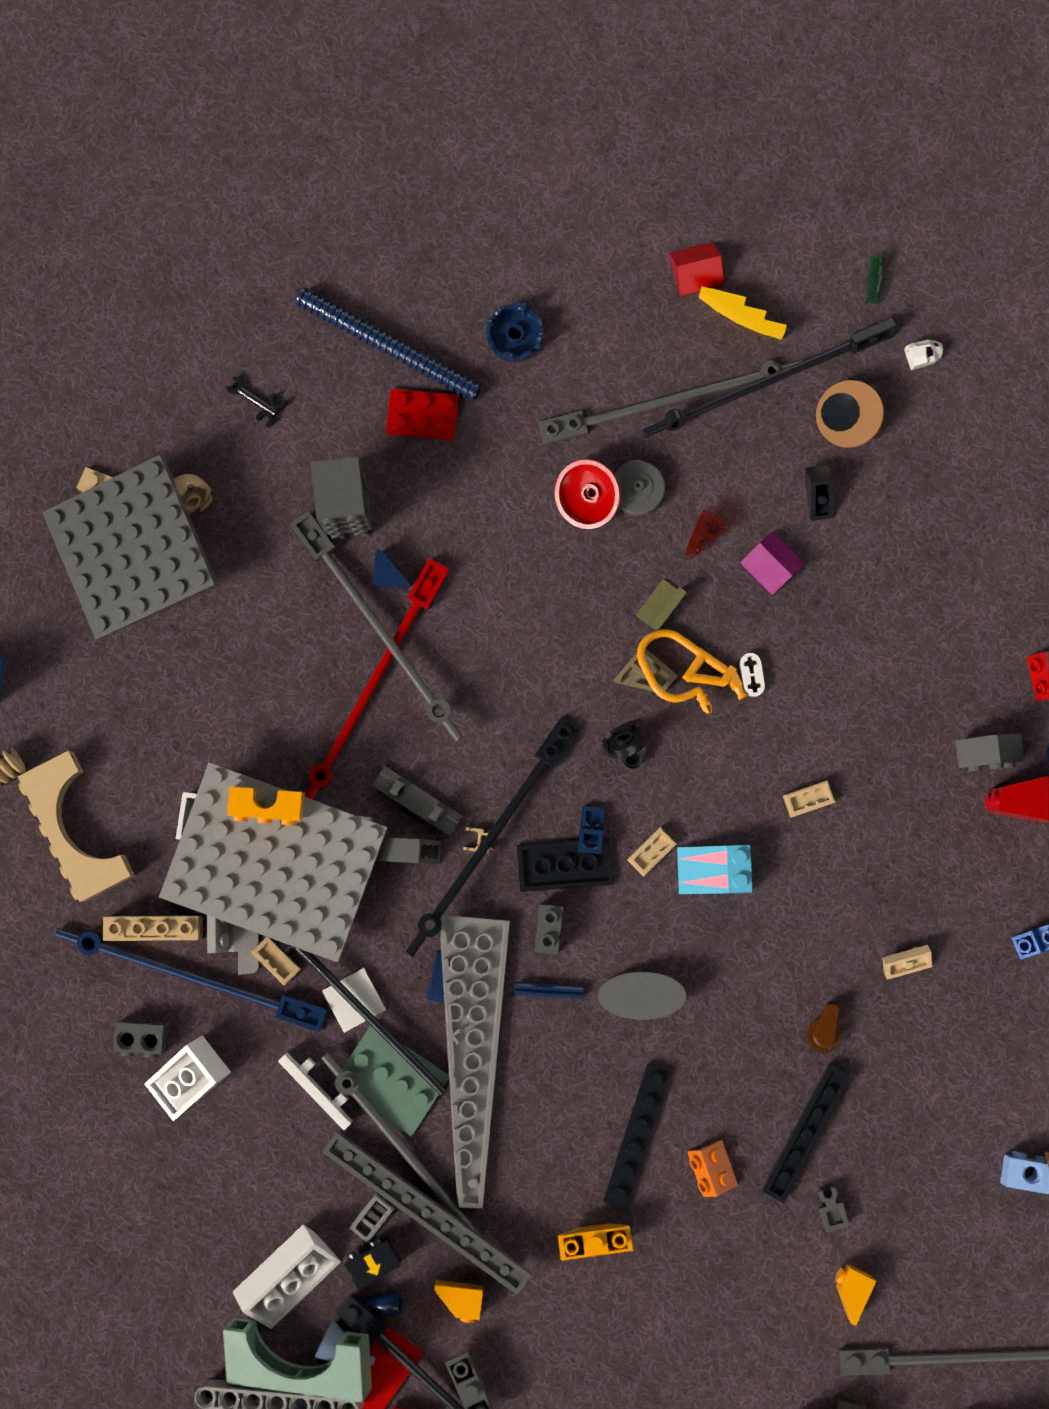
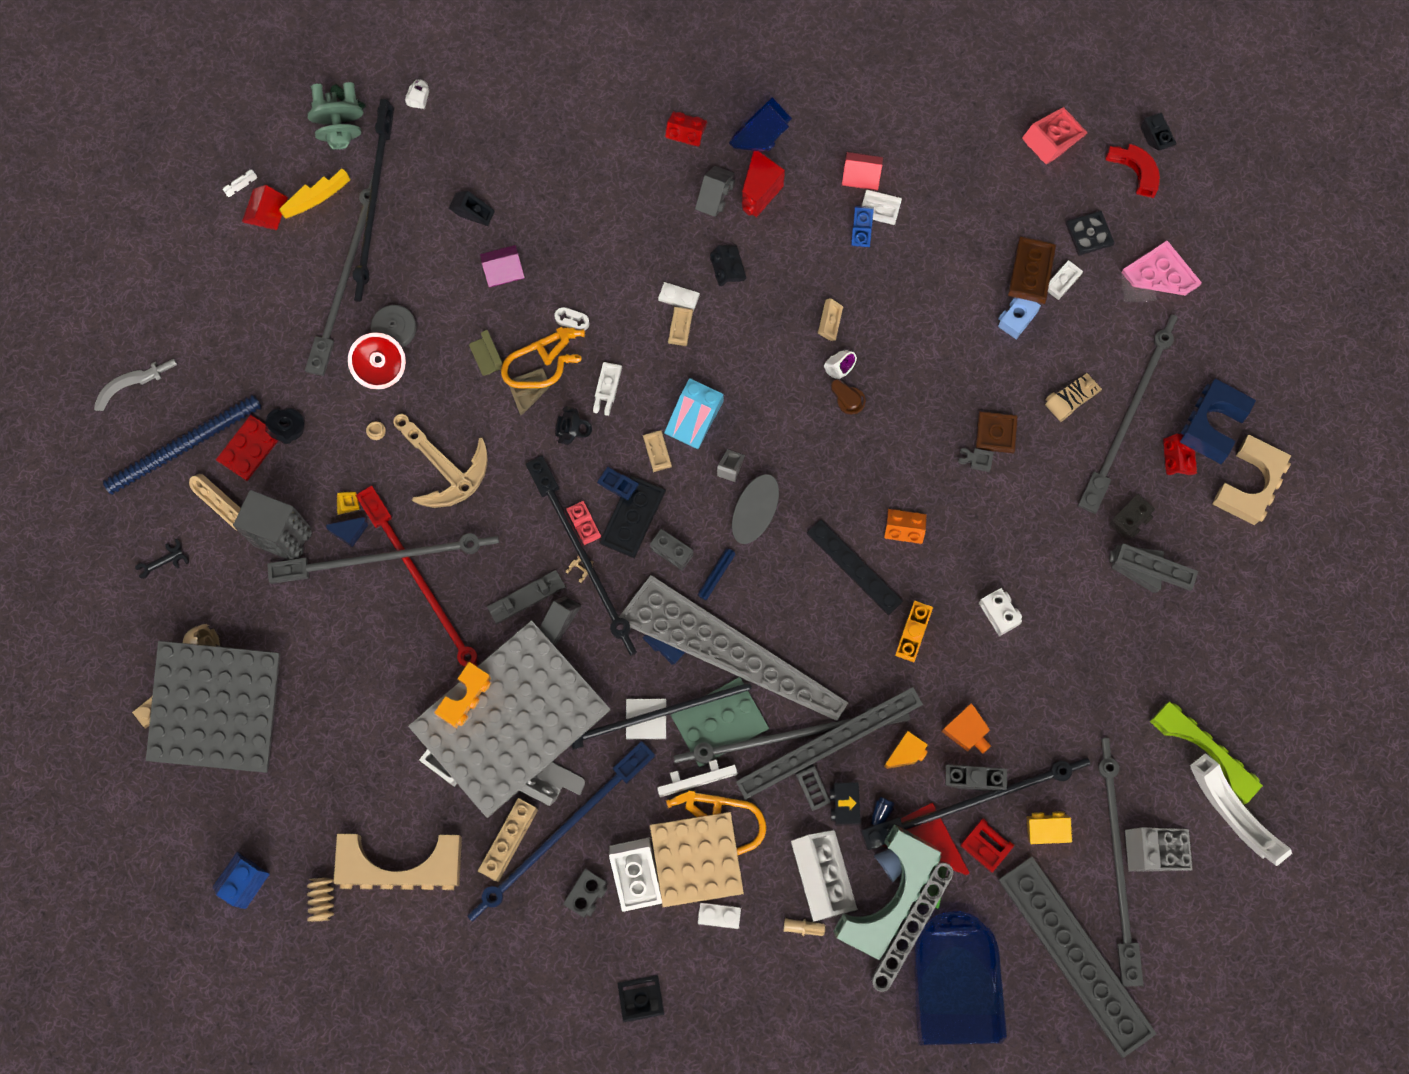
camera: 60 degrees left, 10 degrees down
(63, 1154) = (641, 1001): none -> black slope
(190, 1187) = (719, 915): none -> white plate
(223, 1283) = (804, 927): none -> tan axle
(234, 1134) = (696, 859): none -> tan plate
(276, 960) = (584, 761): tan plate -> none
(295, 1092) = (718, 801): none -> light orange piece
(347, 418) = (214, 498): none -> tan plate
(417, 551) = (345, 503): none -> yellow slope
(430, 245) = (129, 379): none -> light grey sword
(453, 442) = (288, 433): none -> black plate
(506, 649) = (453, 475): none -> tan piece
(512, 536) = (375, 430): none -> tan plate
(517, 317) = (229, 340): dark blue plate -> none
(520, 1354) = (968, 730): none -> orange torso
(529, 816) = (583, 523): none -> coral slope
(670, 1324) = (1000, 611): none -> white brick
(679, 940) = (730, 465): none -> light grey slope
(696, 756) = (607, 386): none -> white hinge
(700, 531) = (452, 299): clear red plate -> none
(711, 223) = (239, 183): none -> white axle
(805, 1133) = (914, 449): black plate -> none
(843, 777) = (678, 296): none -> white plate
(846, 278) = (334, 113): none -> sand green piece
(850, 414) = (429, 161): medium nougat piece -> none
(854, 1290) = (1041, 473): light orange slope -> none
(860, 1001) = (840, 364): none -> white rock
(875, 1216) = (996, 432): none -> reddish brown plate
(910, 811) = (727, 264): none -> black bracket
(964, 1283) = (1072, 396): none -> tan door

